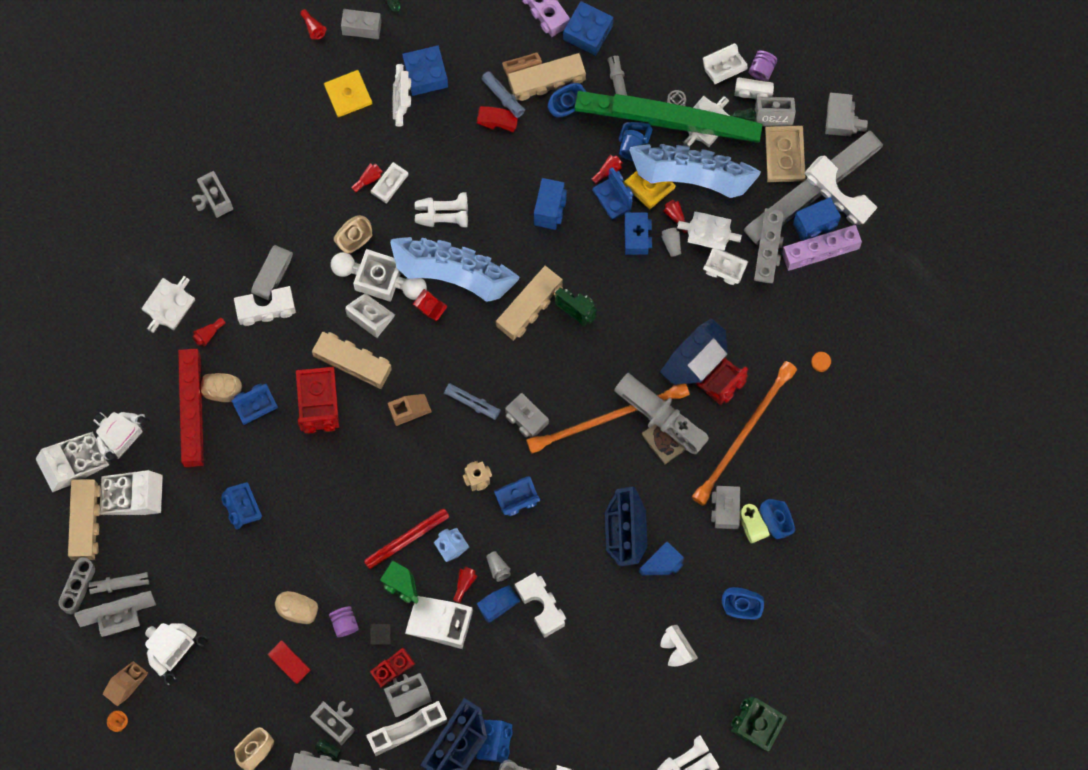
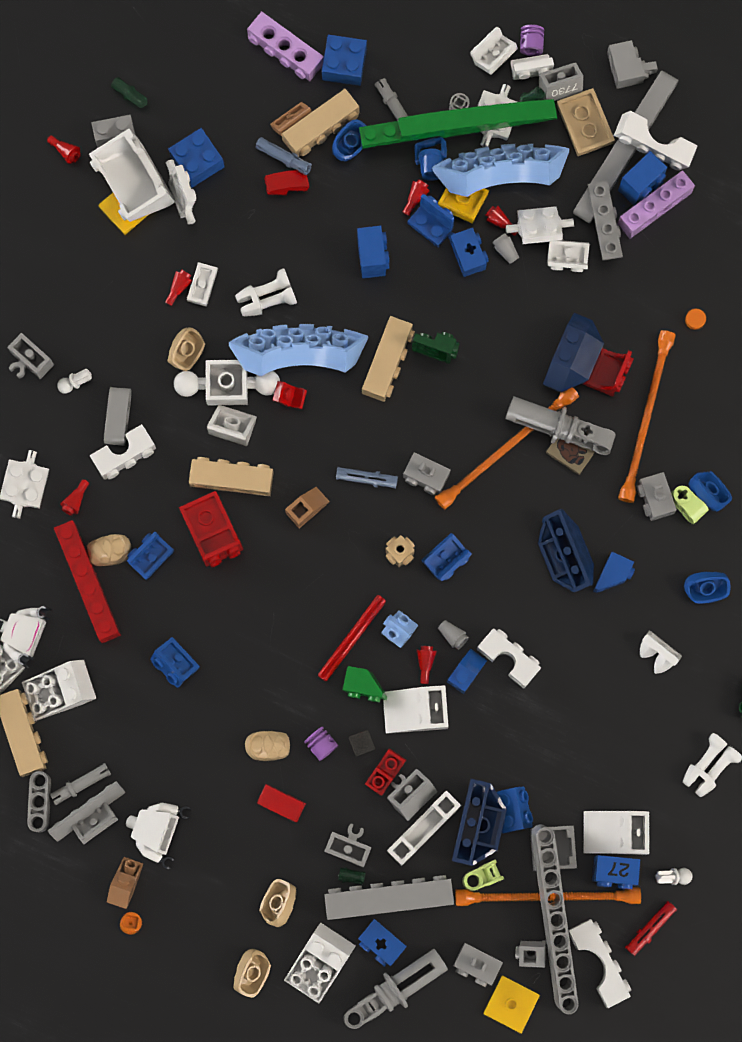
camera: 20 degrees left, 5 degrees up
(237, 230) = (66, 385): none -> white axle
(362, 67) = (131, 176): none -> white windscreen

